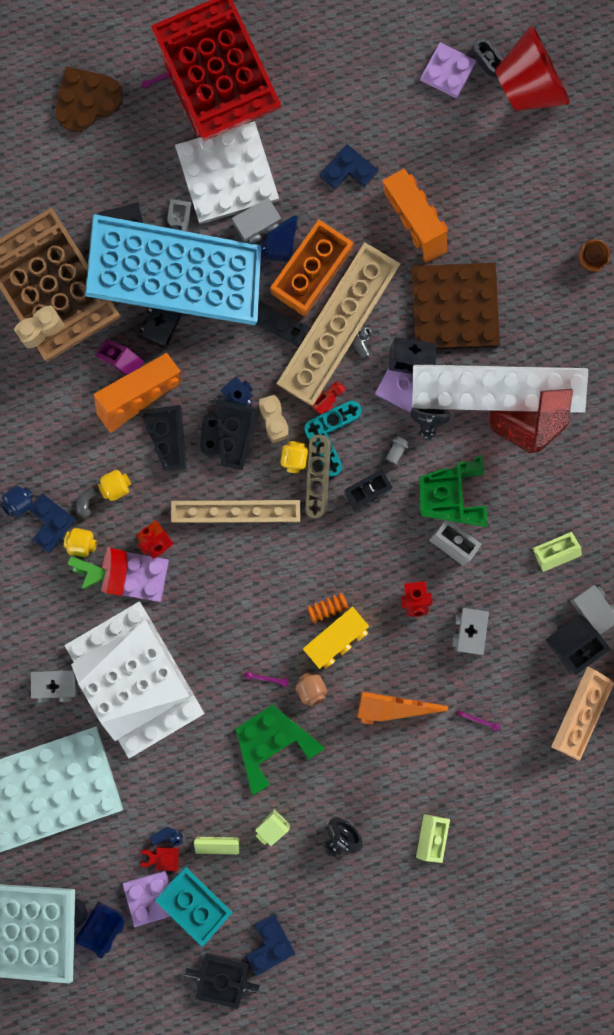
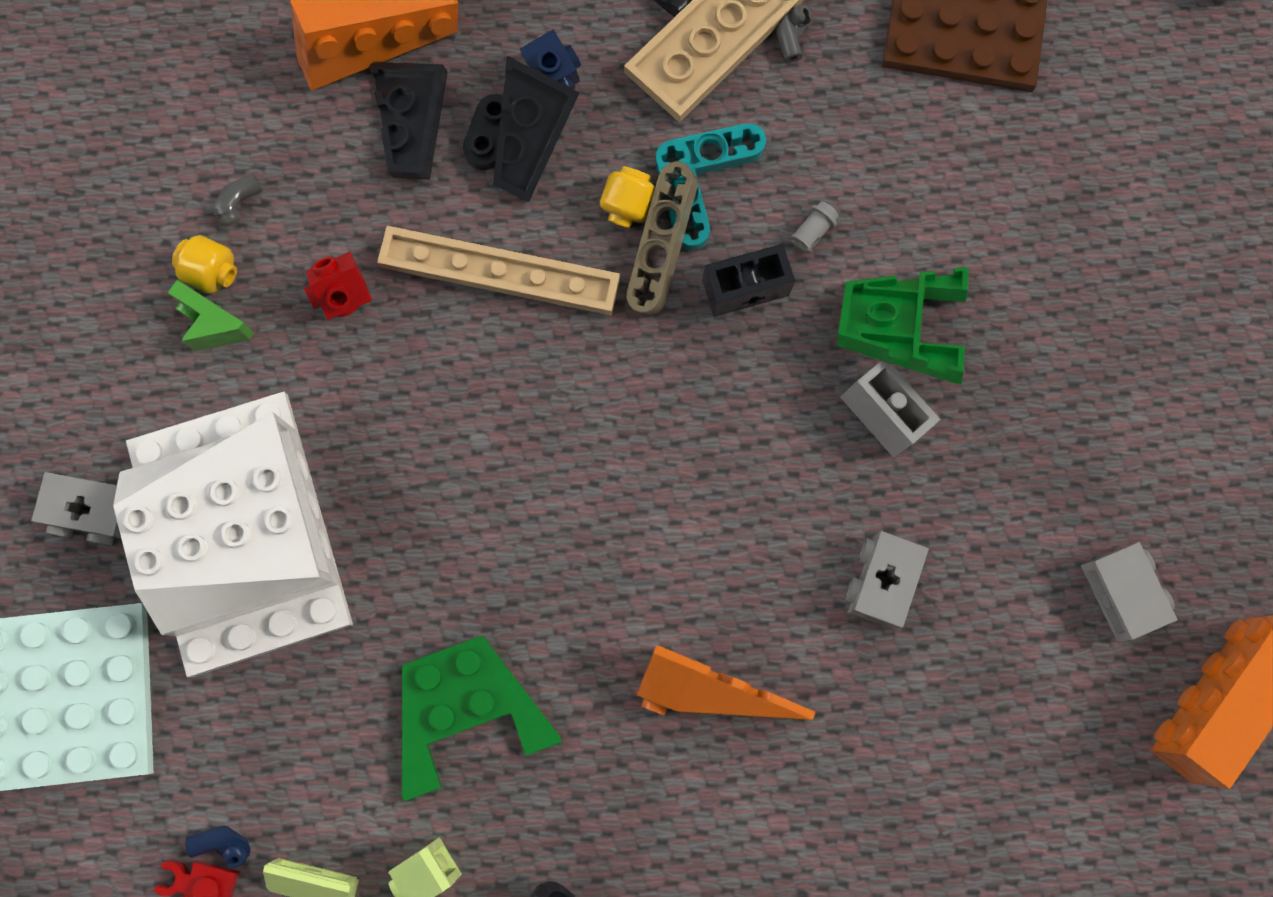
camera: 10 degrees right, 5 degrees down
(17, 501) = (112, 167): dark blue head -> none
(56, 522) = (172, 221): dark blue plate -> none
(114, 485) = (293, 178): yellow head -> none
(116, 565) = (253, 324): red slope -> none
(145, 577) = (304, 351): lavender plate -> none
(272, 414) = (605, 123): tan brick -> none
(284, 682) = (513, 599): magenta hinge -> none
(311, 689) = (561, 623): nougat head -> none
(327, 398) = (703, 114): red plate -> none
(327, 607) = (627, 478): orange piece -> none
(336, 638) = (630, 537): yellow brick -> none
(397, 389) = (849, 119): lavender plate -> none
(406, 353) = (877, 68): black brick -> none
(416, 599) = (795, 496): red brick -> none
(430, 420) = (885, 184): black hair -> none
(494, 387) = (1029, 149): white plate -> none
(495, 726) = (895, 772): magenta hinge -> none
(534, 429) = (1041, 192): clear red windscreen -> none
(557, 551) = (1075, 470): yellowish green slope -> none
(577, 644) = (1086, 650): black slope -> none
(583, 714) = (1073, 785): light nougat tile -> none

